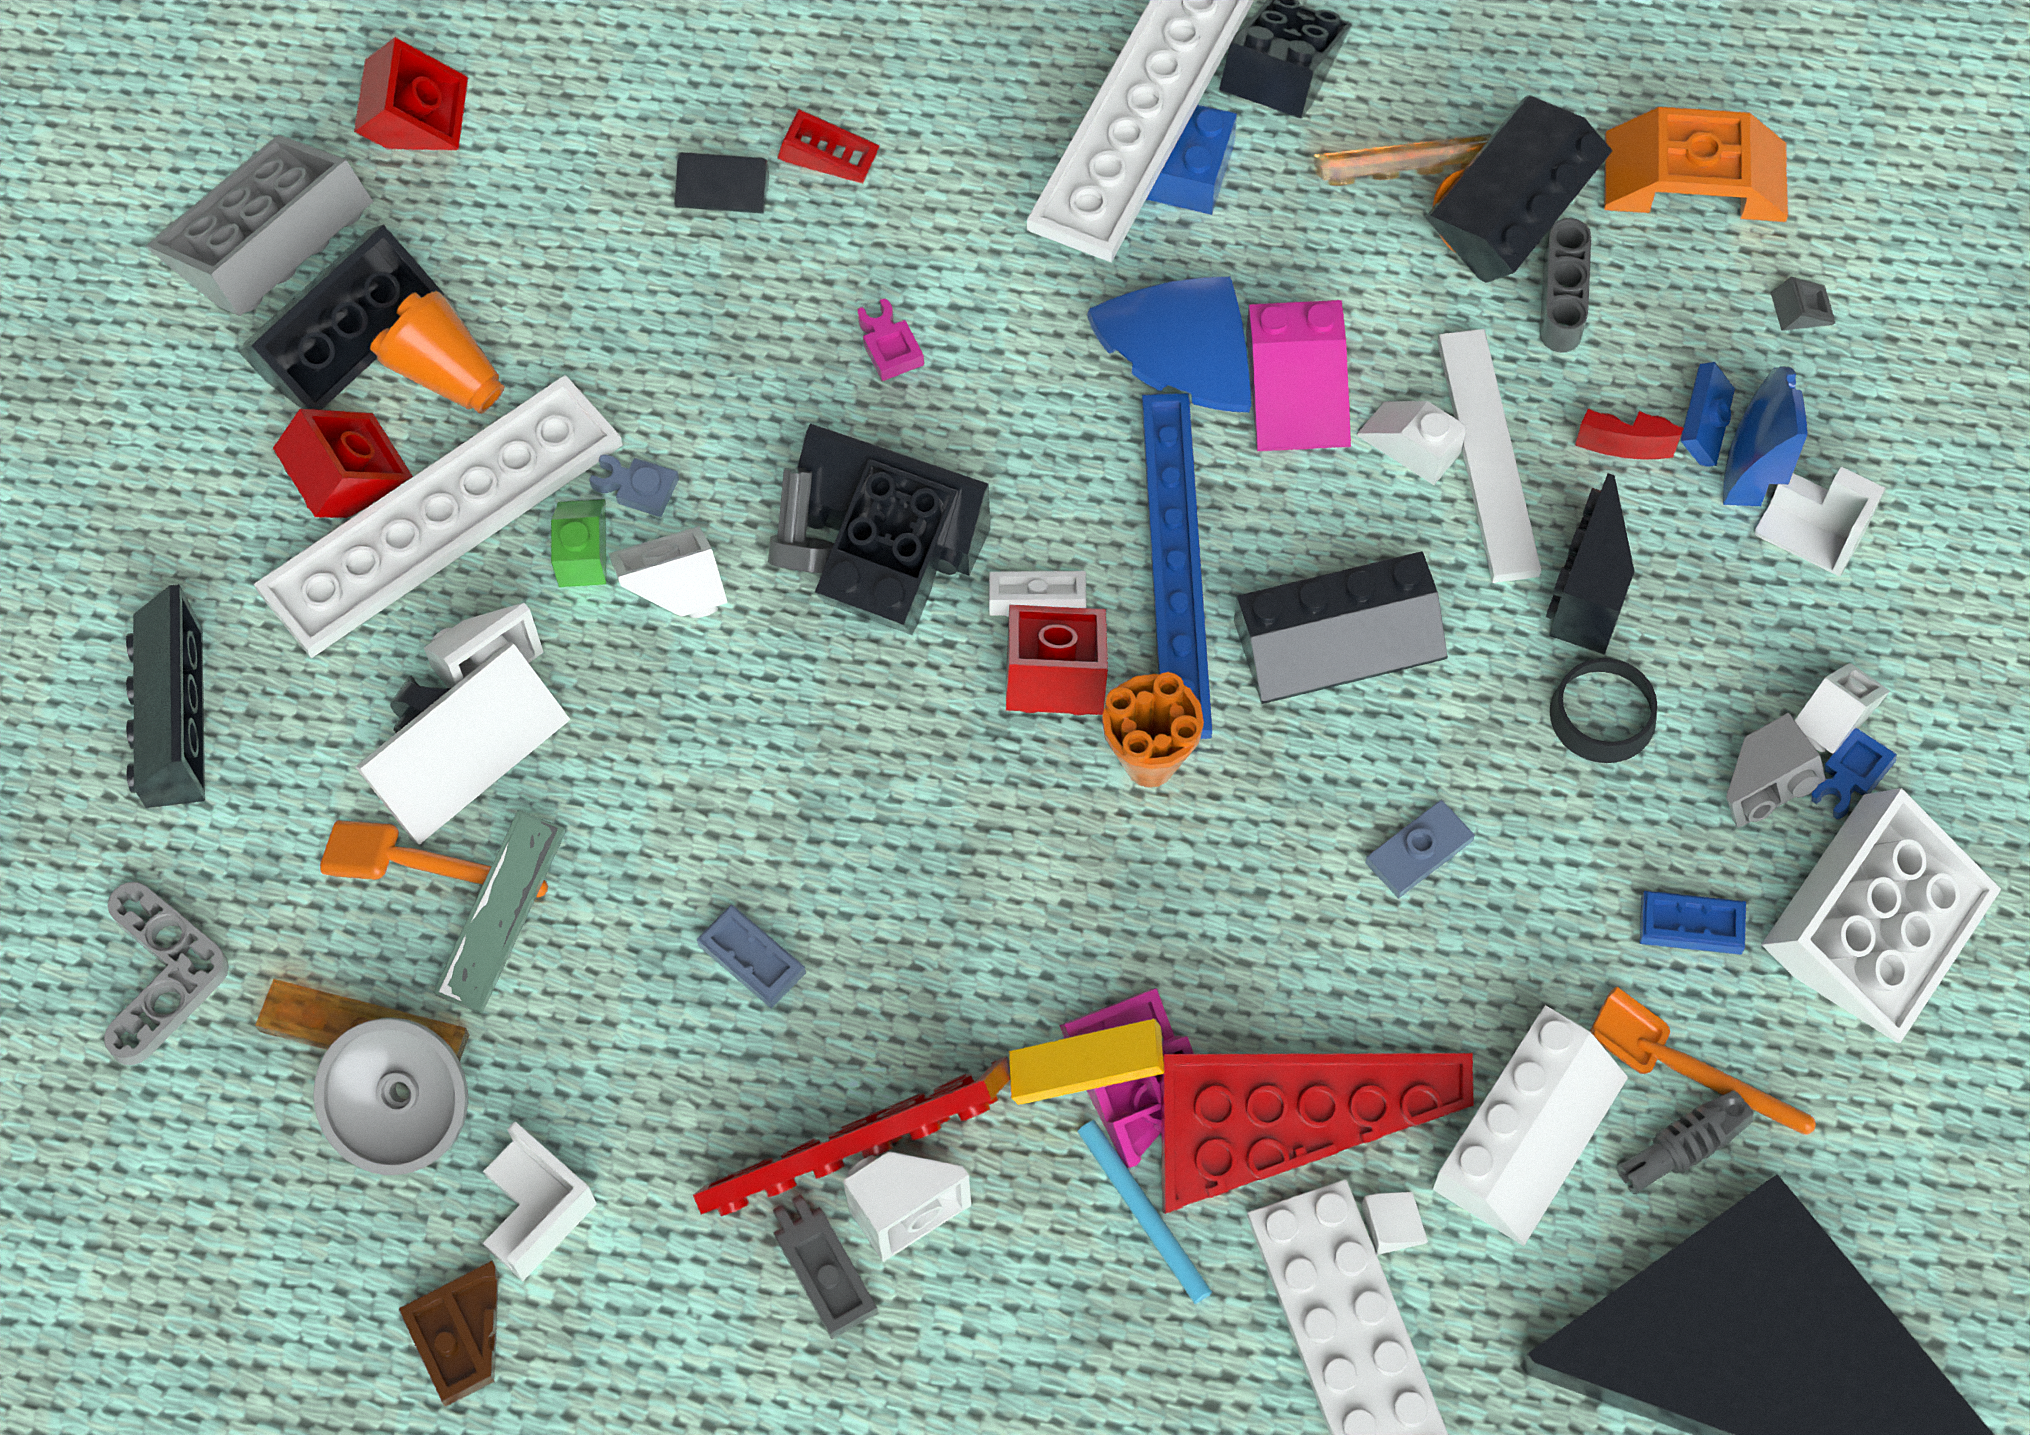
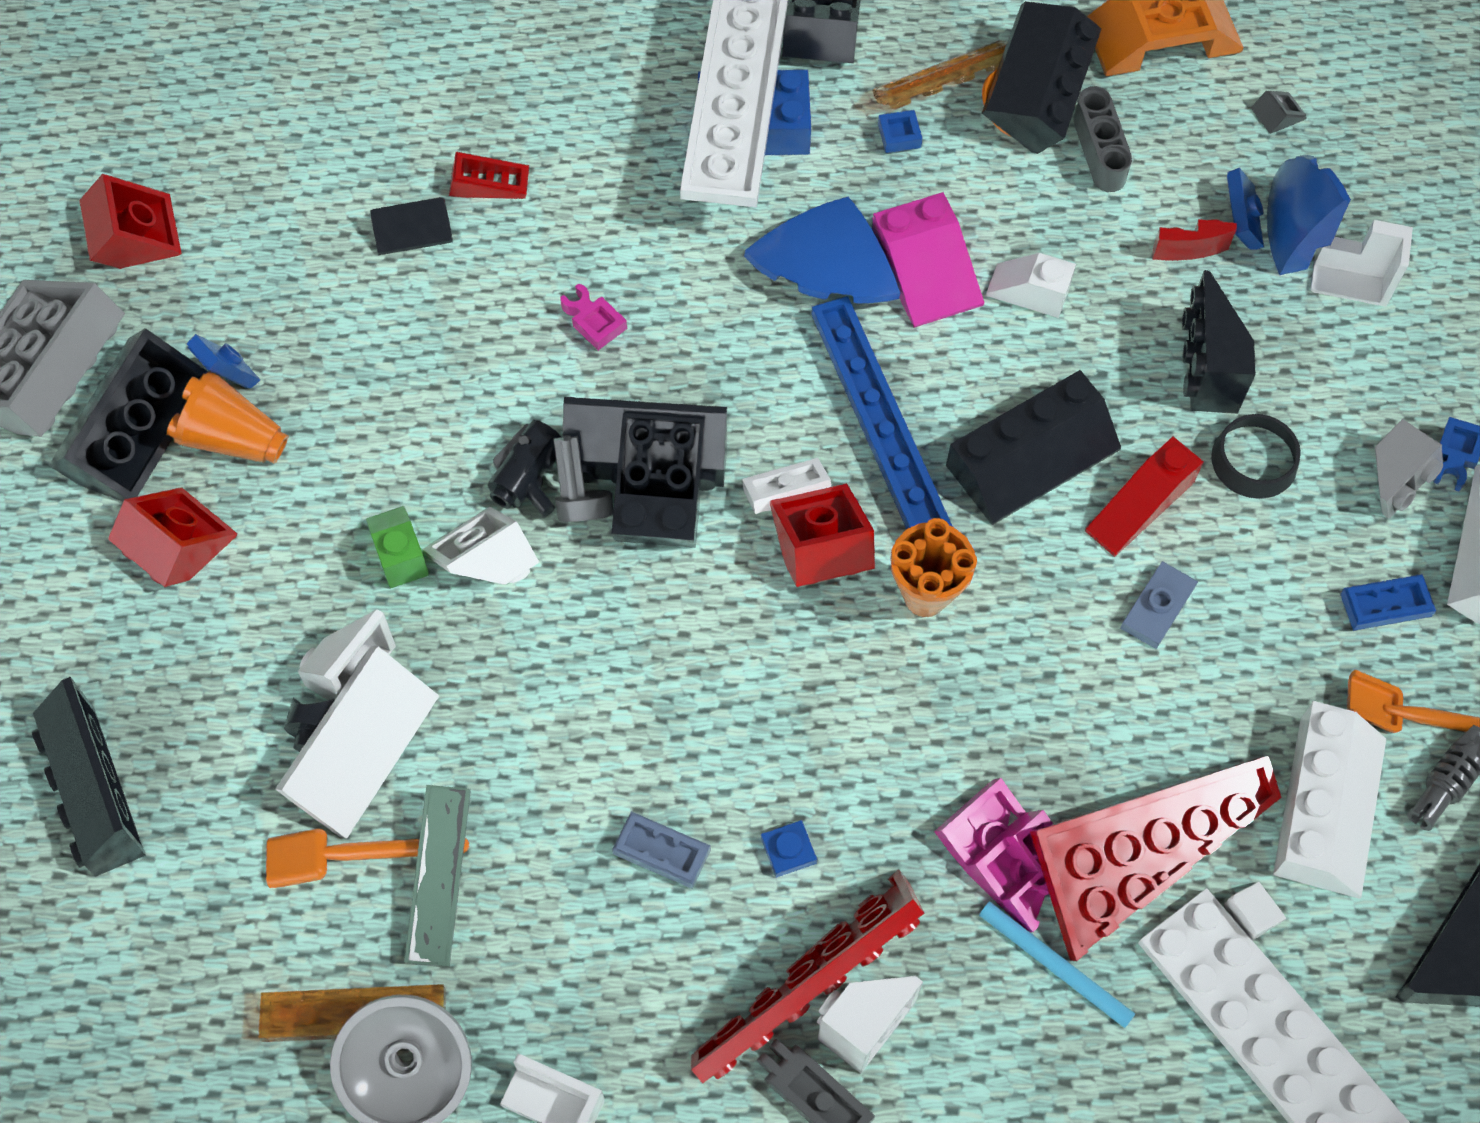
camera: 20 degrees left, 0 degrees up
(176, 977) = (172, 1017): light grey beam -> none
(437, 516) = (266, 559): white plate -> none
(458, 284) = (223, 361): none -> blue plate
(640, 487) = (431, 487): sand blue plate -> none
(747, 492) = (522, 467): none -> black piece
(892, 997) = (788, 848): none -> blue plate
(1086, 1062) = (972, 856): yellow tile -> none
(1326, 214) = (900, 131): none -> blue plate
(1451, 719) = (1145, 496): none -> red slope
(1489, 456) = (1094, 285): white tile -> none
(1839, 707) = (1432, 404): white slope -> none

